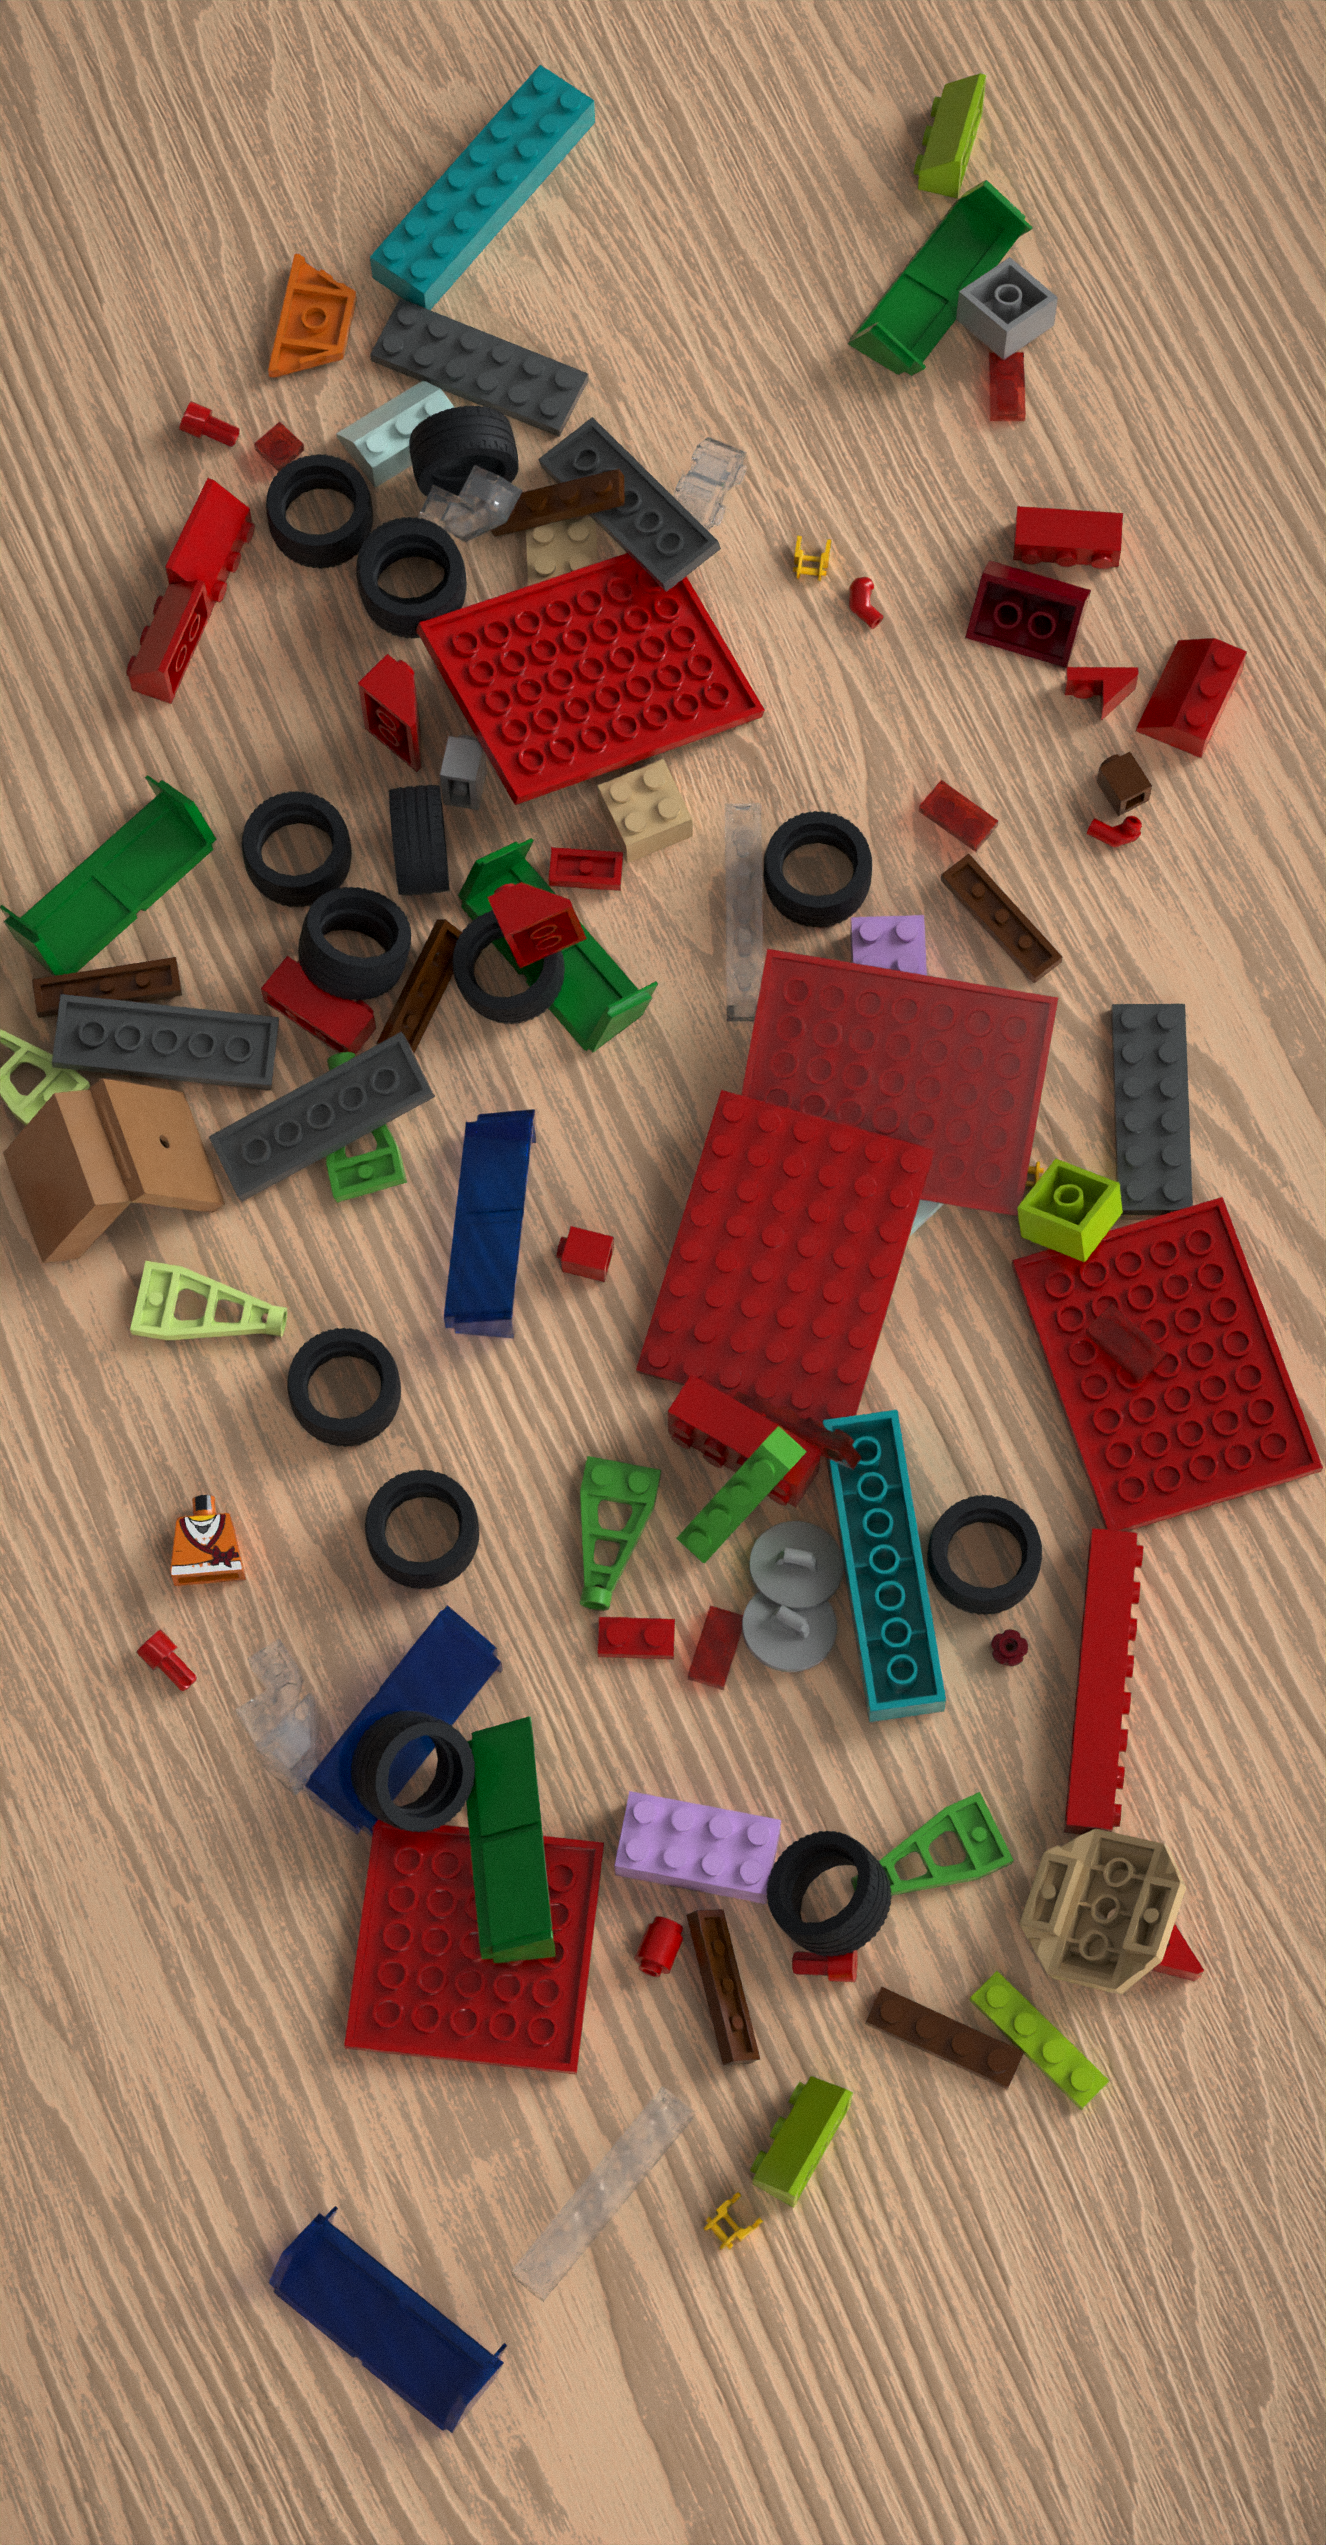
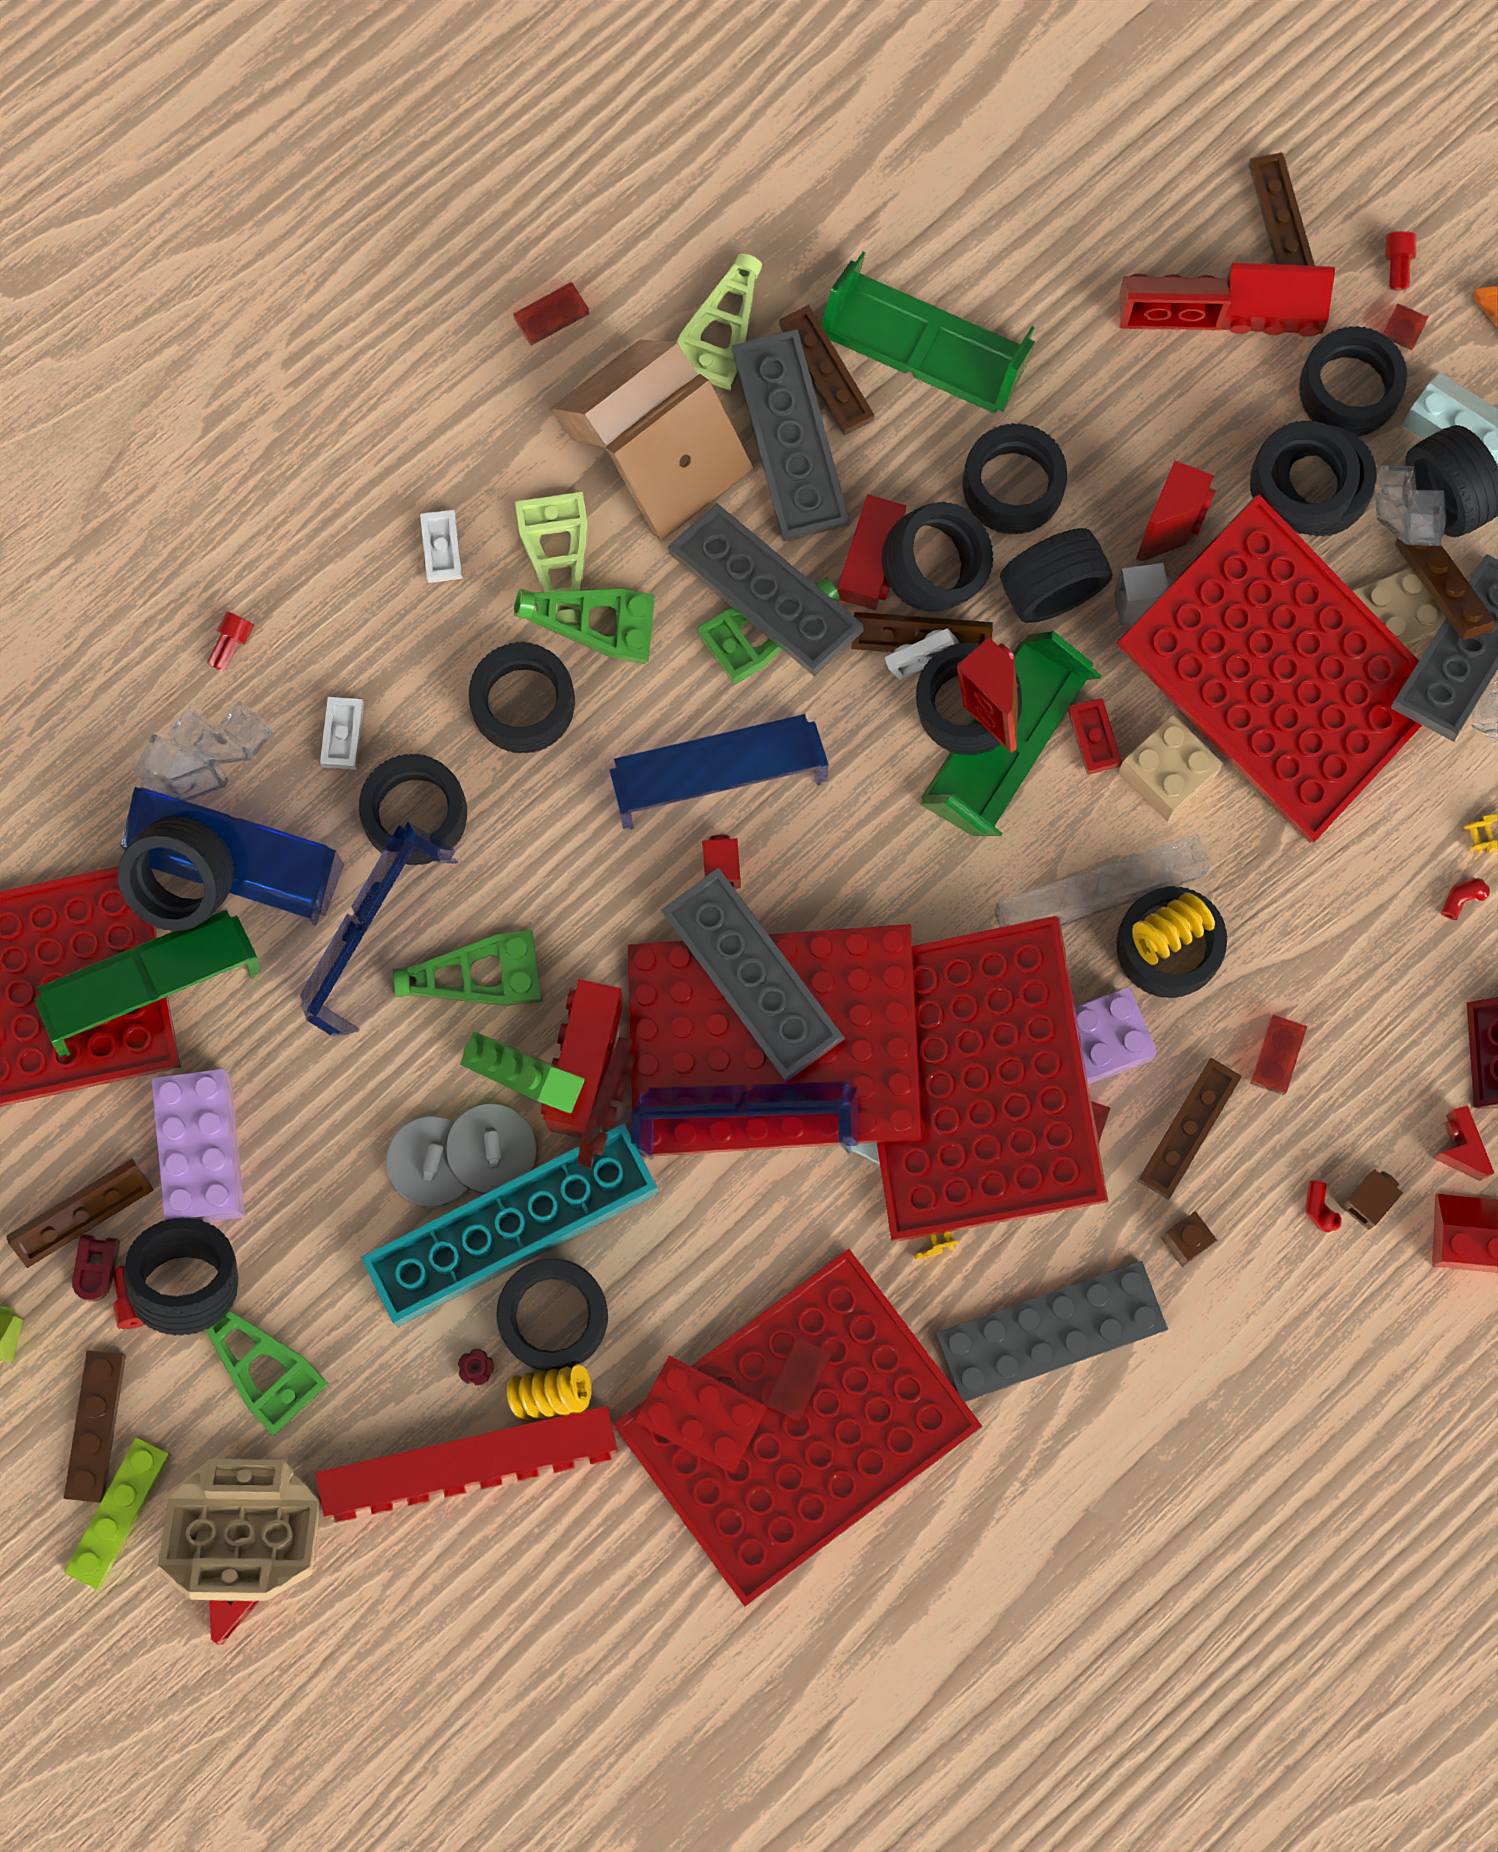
camera: 70 degrees right, 5 degrees up
(118, 514) = (1280, 210): none -> reddish brown plate
(147, 1418) = (441, 546): none -> white plate
(205, 1546) = (341, 635): torso -> none
(299, 1258) = (632, 619): none -> bright green plate
(311, 1578) = (342, 733): none -> white plate
(444, 1009) = (912, 658): none -> white plate
(534, 1611) = (354, 927): none -> clear blue piece
(636, 1638) = (379, 1030): red plate -> none
(659, 1946) = (100, 1145): red brick -> none
(716, 1648) = (392, 1103): clear red plate -> none
(717, 1251) = (752, 974): none -> dark grey plate
(796, 1996) = (94, 1280): none -> dark red plate
(813, 855) = (1170, 926): none -> yellow piece
(847, 1290) = (737, 1101): none -> clear blue piece
(1063, 1579) = (549, 1393): none -> yellow piece
(1070, 1210) = (912, 1284): lime brick -> none
(1107, 954) = (1189, 1238): none -> reddish brown brick
(1128, 1445) = (701, 1414): none -> red plate

